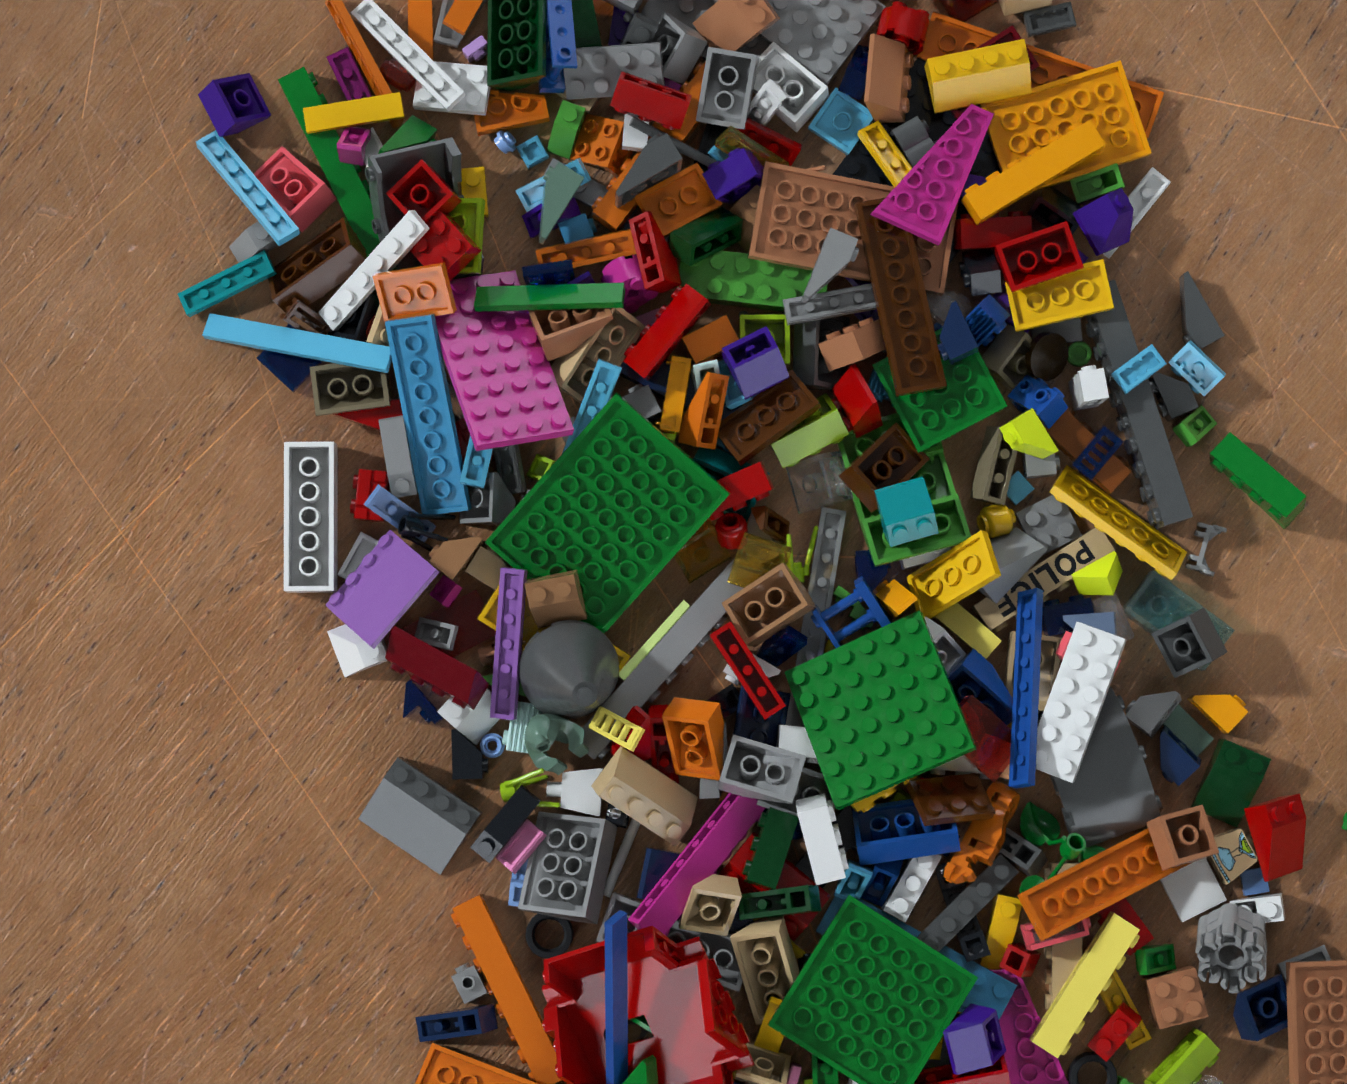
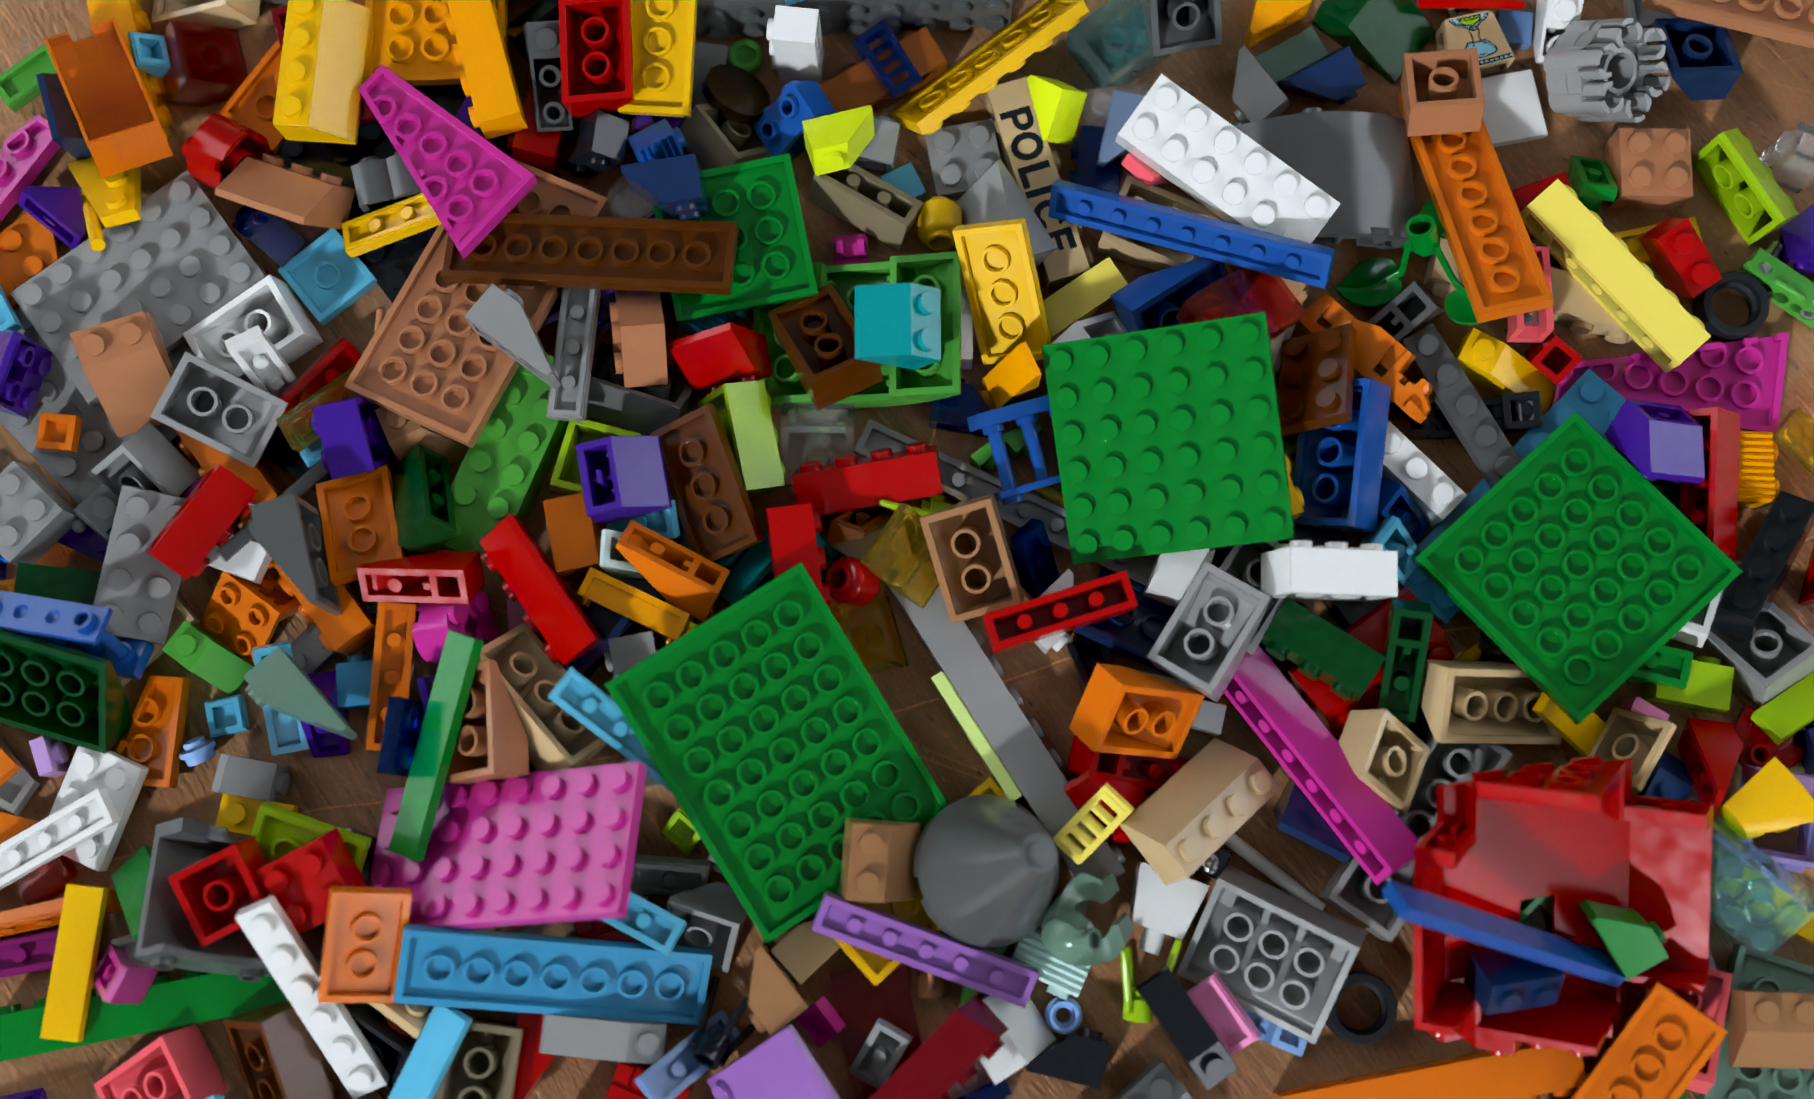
camera: 75 degrees left, 5 degrees down
(497, 184) = (251, 778): none -> light grey slope
(588, 1018) = (1511, 983): none -> dark blue brick
(801, 520) = (865, 481): none -> red brick
(960, 465) = (850, 249): none -> dark pink tile
(1018, 225) = (544, 72): none -> dark grey slope

